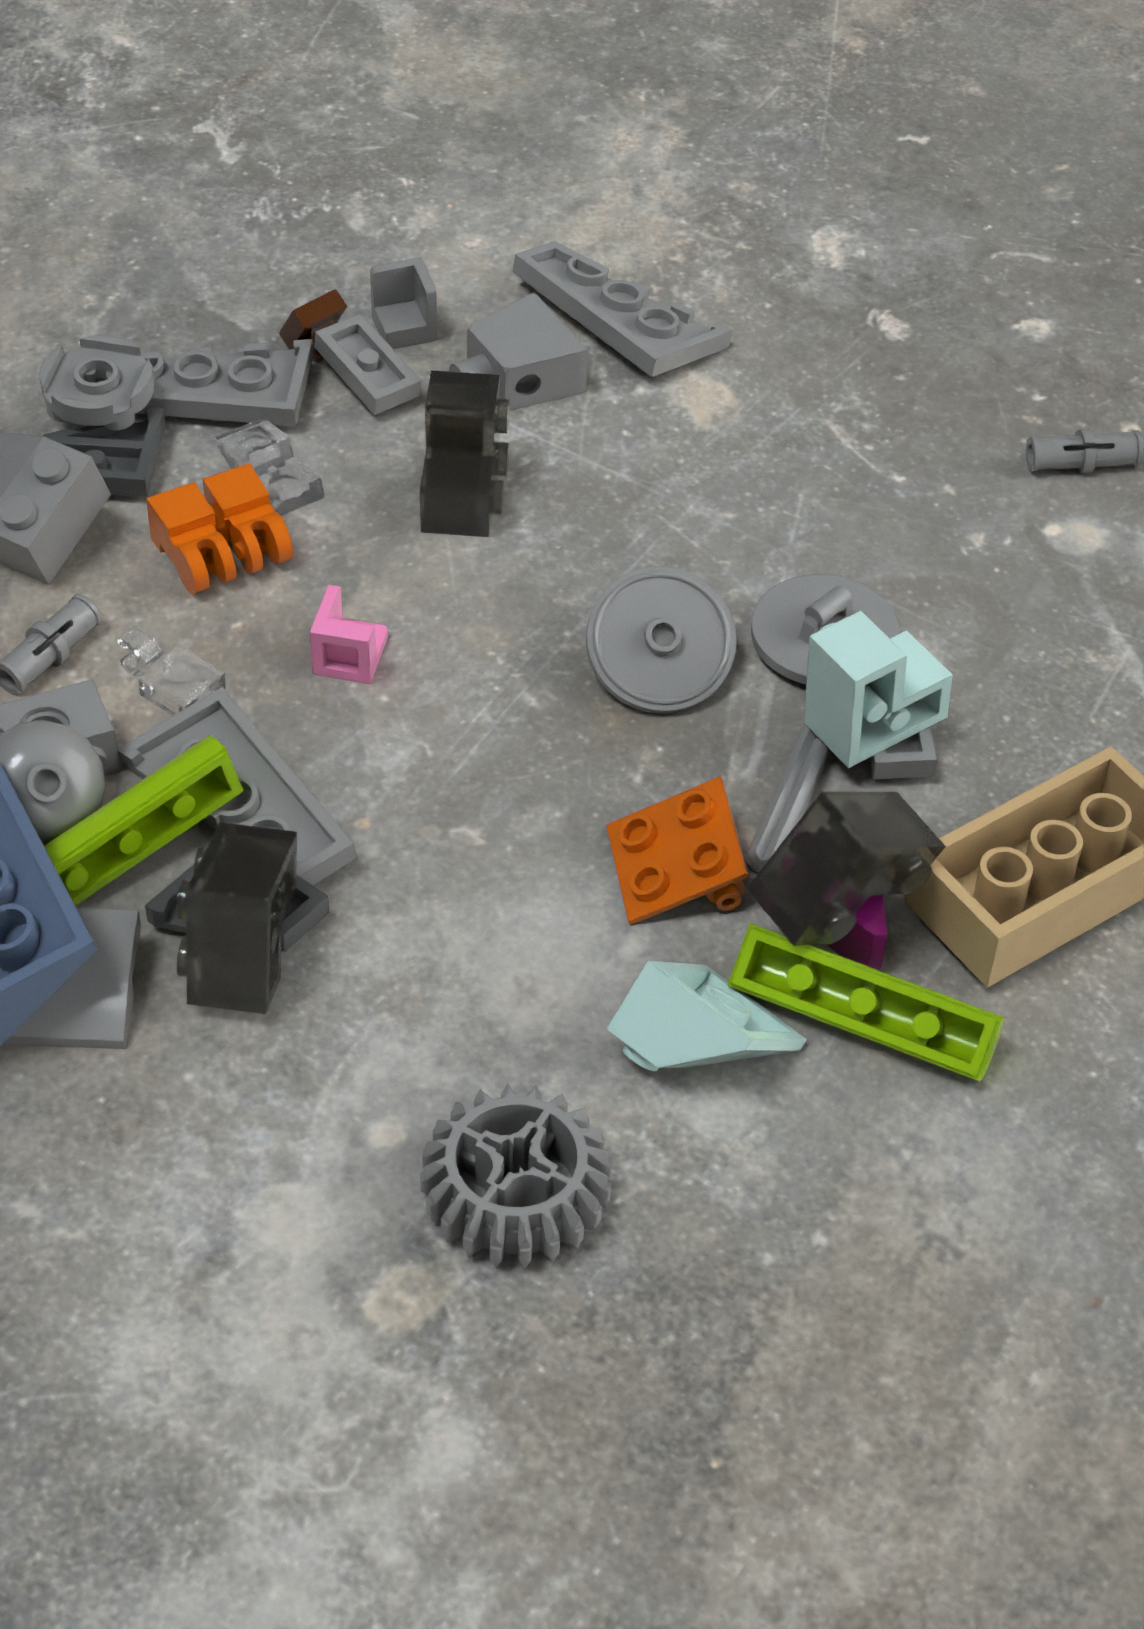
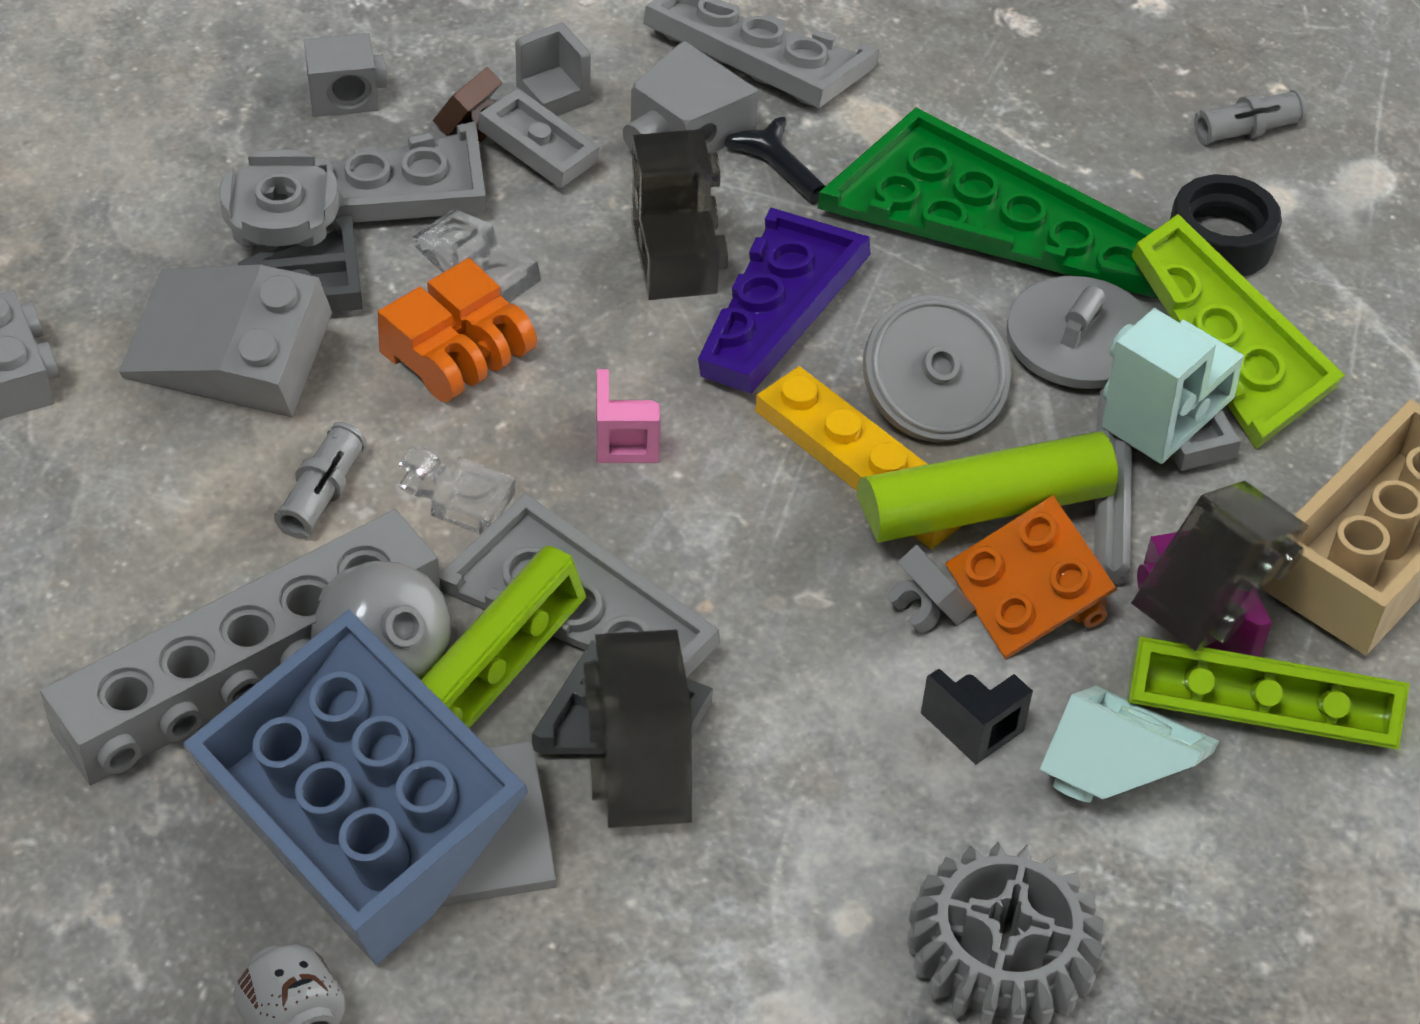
camera: 15 degrees left, 0 degrees up
(207, 277) = (343, 74): none -> light grey brick
(549, 542) = (783, 290): none -> dark purple wing
(567, 713) = (836, 433): none -> yellow plate
(575, 967) = (973, 715): none -> black panel
(577, 844) = (932, 588): none -> light grey tile
(590, 406) = (769, 146): none -> black piece
(661, 756) = (988, 485): none -> lime brick
(776, 486) = (973, 196): none -> green wing
(996, 686) = (1280, 366): none -> lime wing
(1016, 523) = (1239, 201): none -> black tyre

